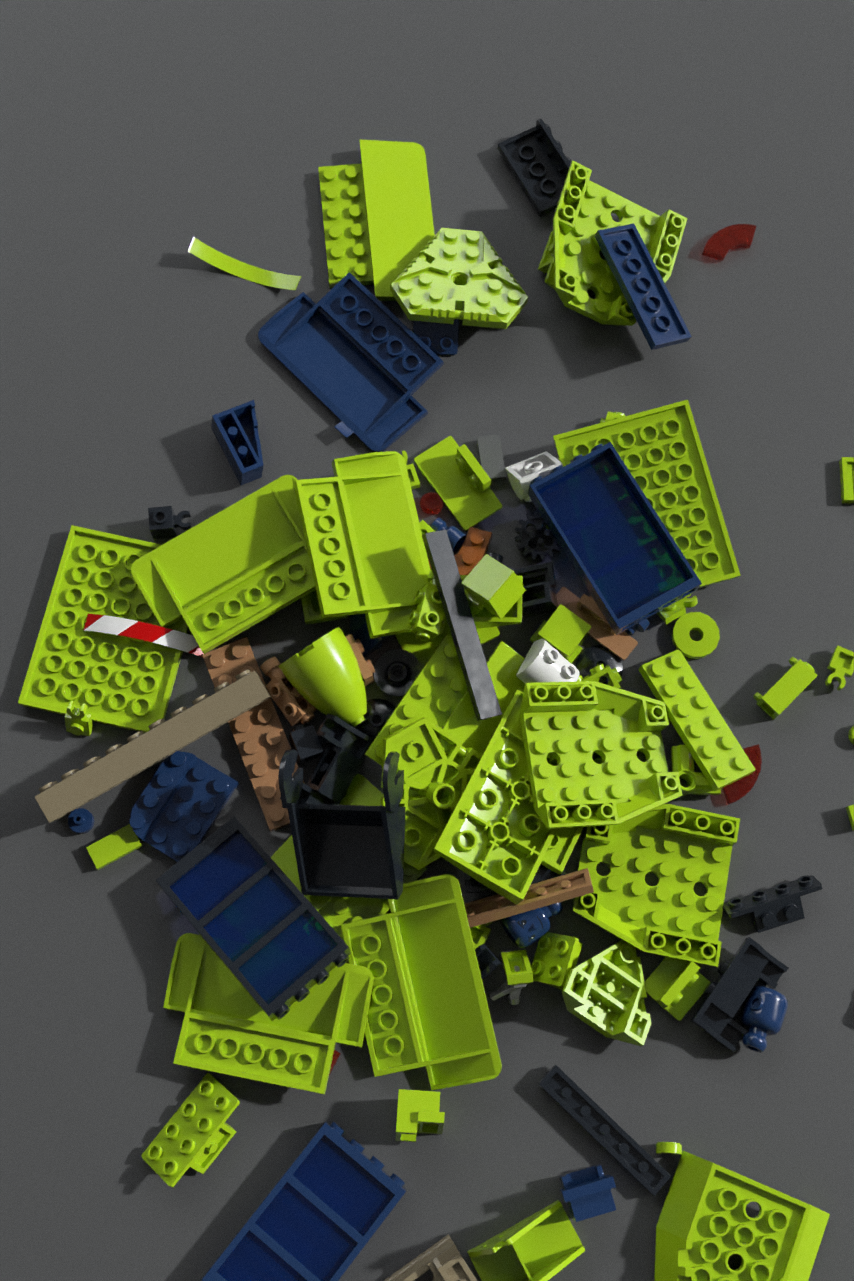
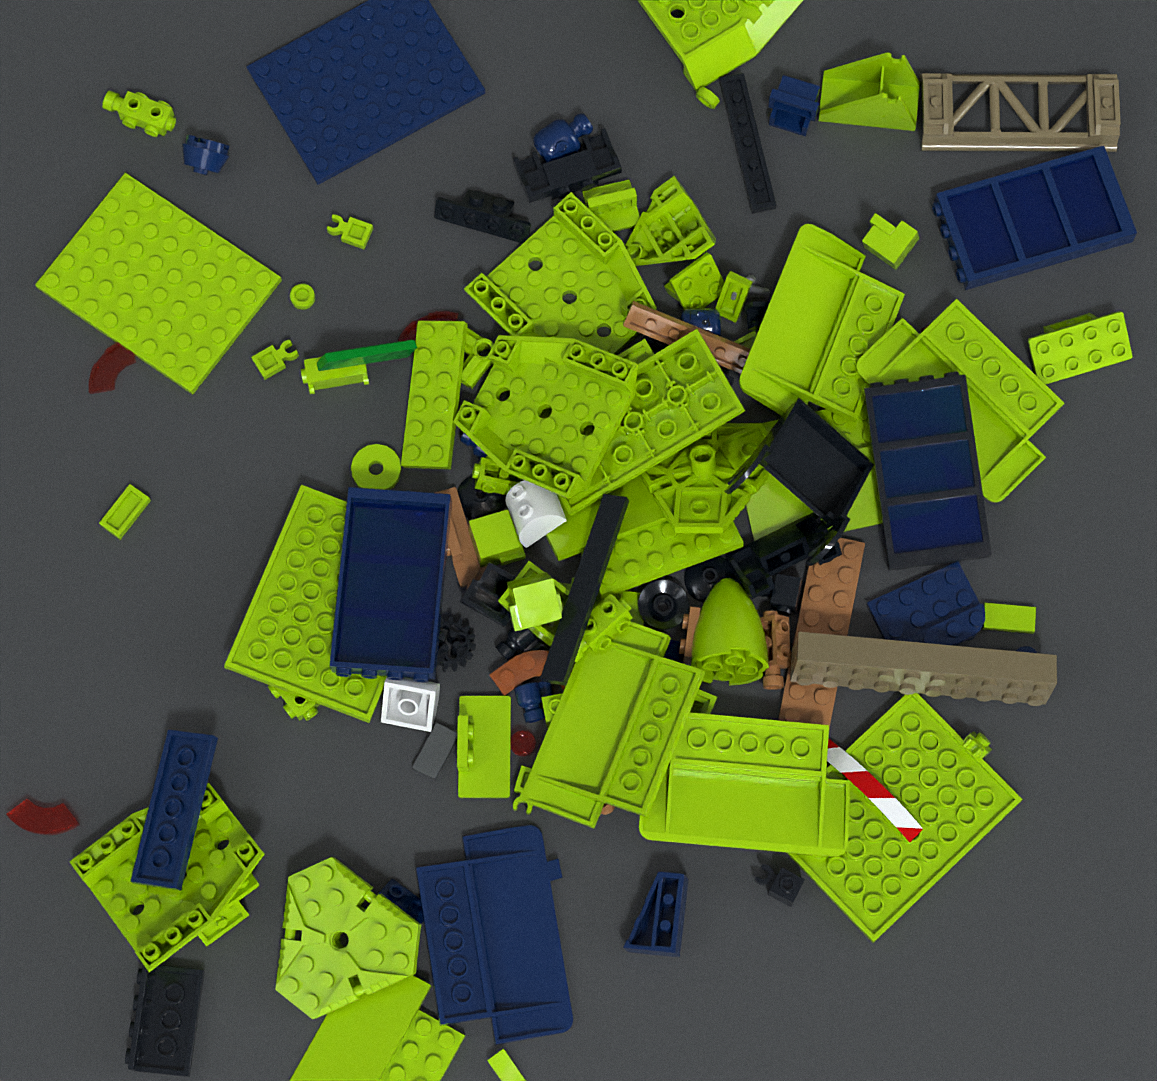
camera: 140 degrees left, 0 degrees up
(772, 706) = (366, 355): none -> green tile

